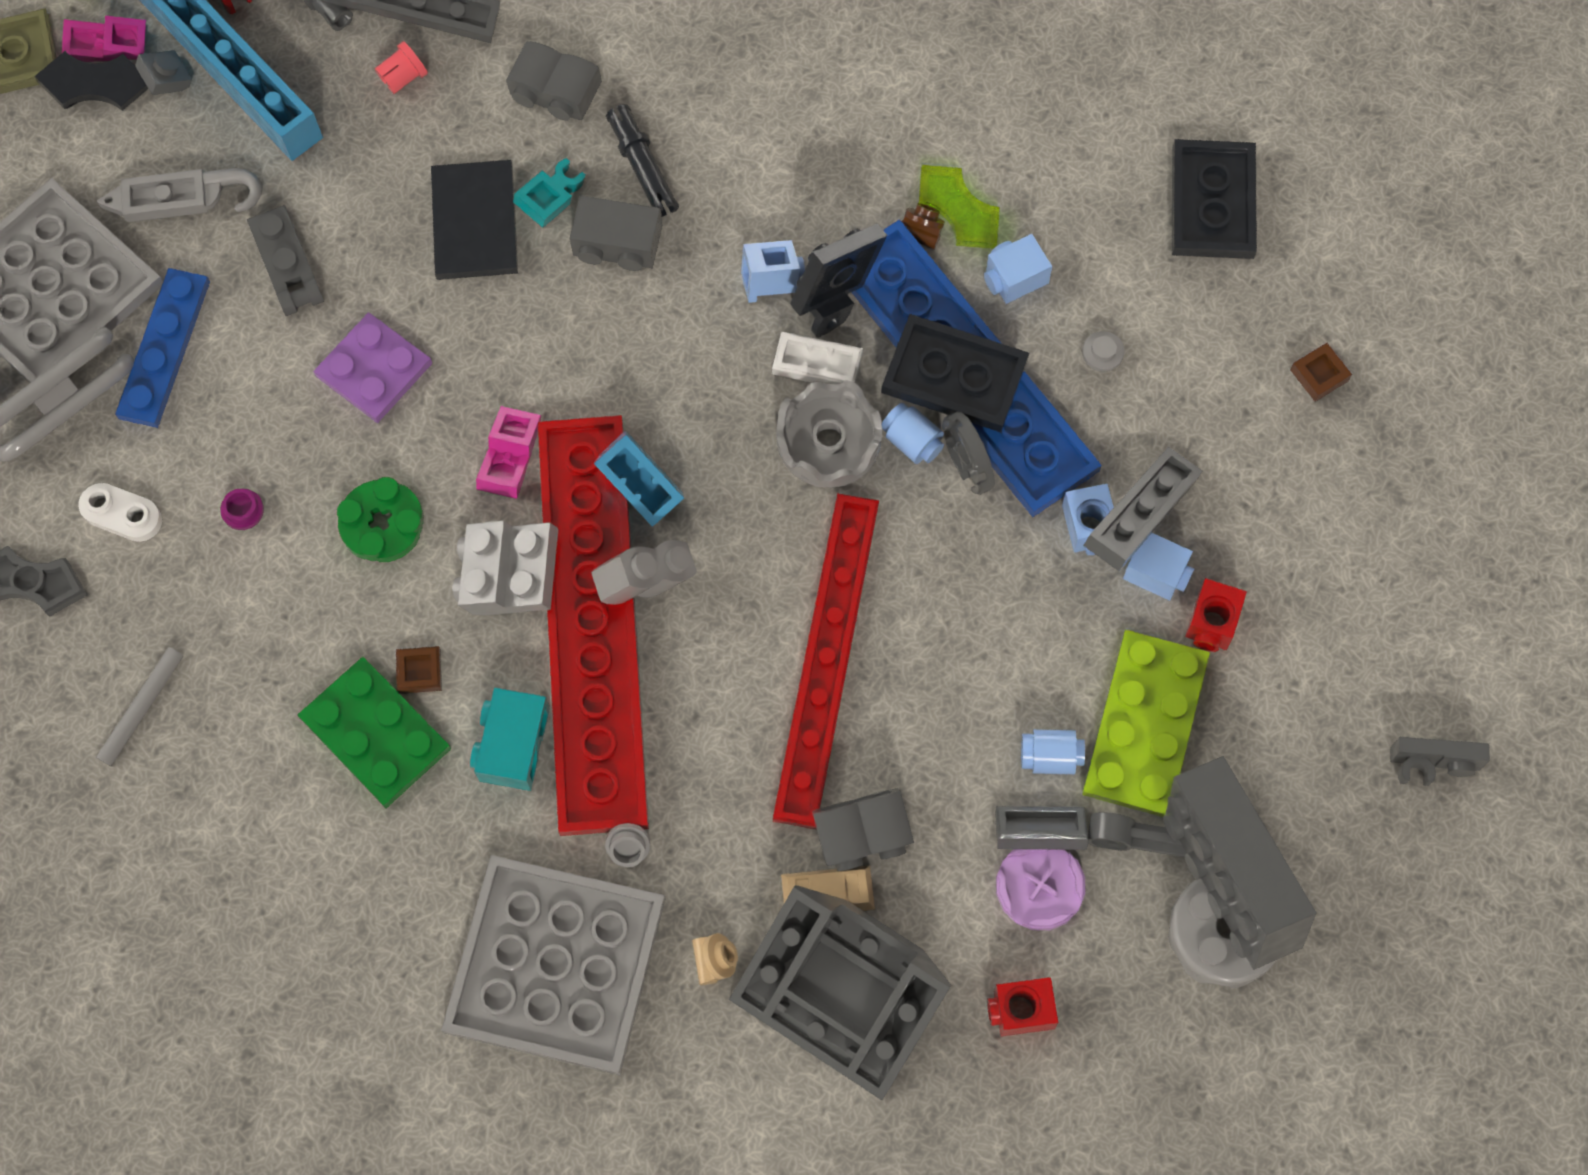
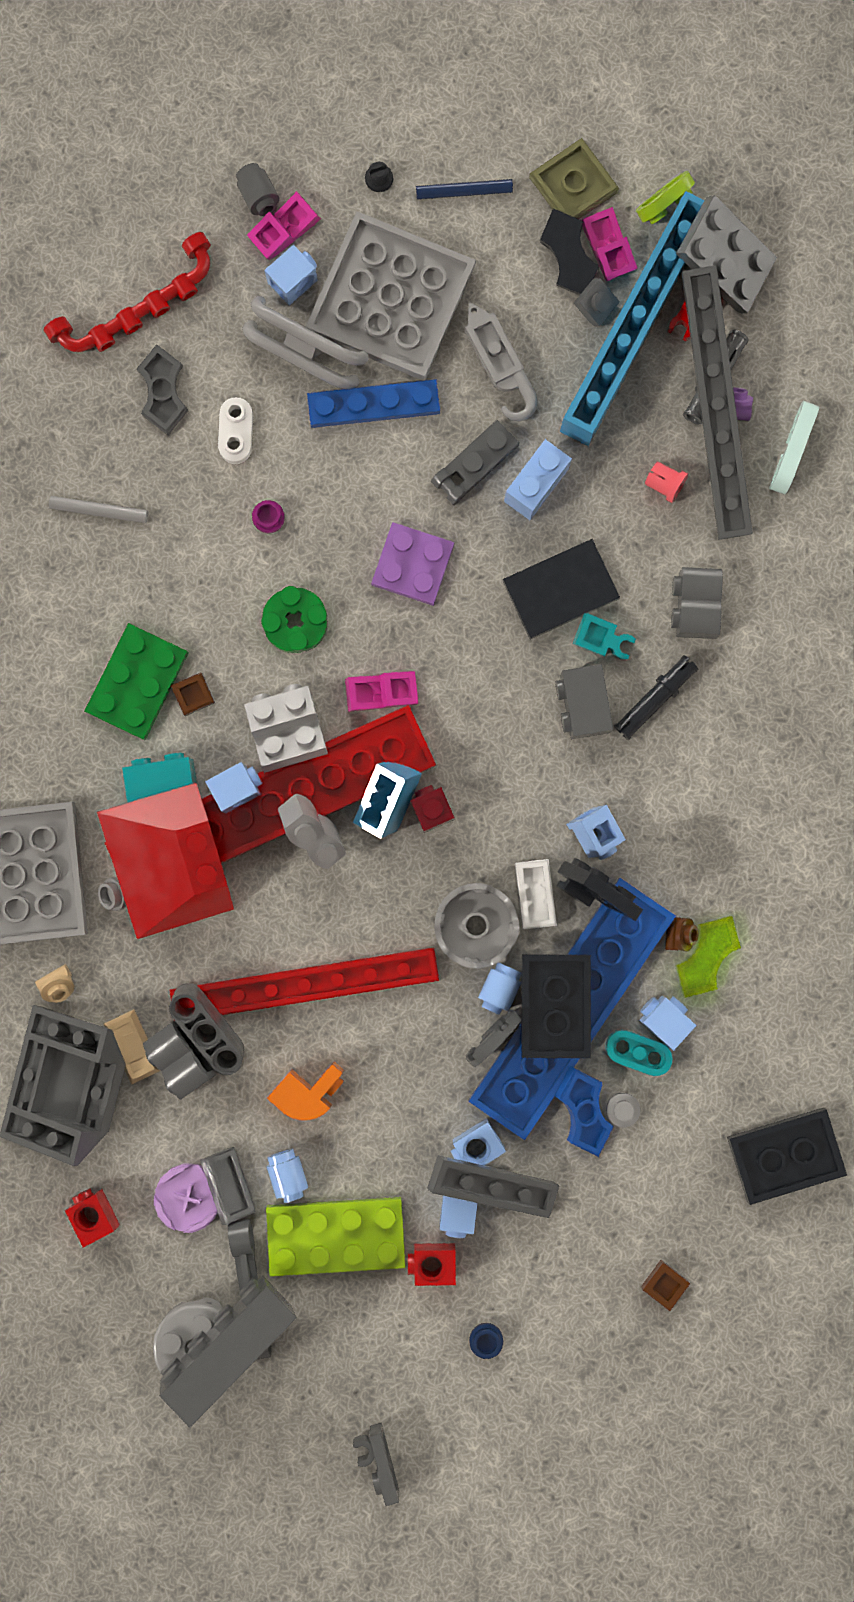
camera: 70 degrees right, 15 degrees up
(337, 196) = (537, 479): none -> light blue brick
(554, 643) = (234, 787): none -> light blue brick
(612, 753) = (166, 860): none -> red slope
(671, 436) = (431, 808): none -> dark red brick
(854, 767) = (208, 1044): none -> dark grey beam
(966, 700) = (303, 1101): none -> orange brick
(1041, 314) = (638, 1052): none -> teal plate
(1075, 388) = (581, 1097): none -> blue tile
(1326, 591) = (486, 1340): none -> dark blue plate

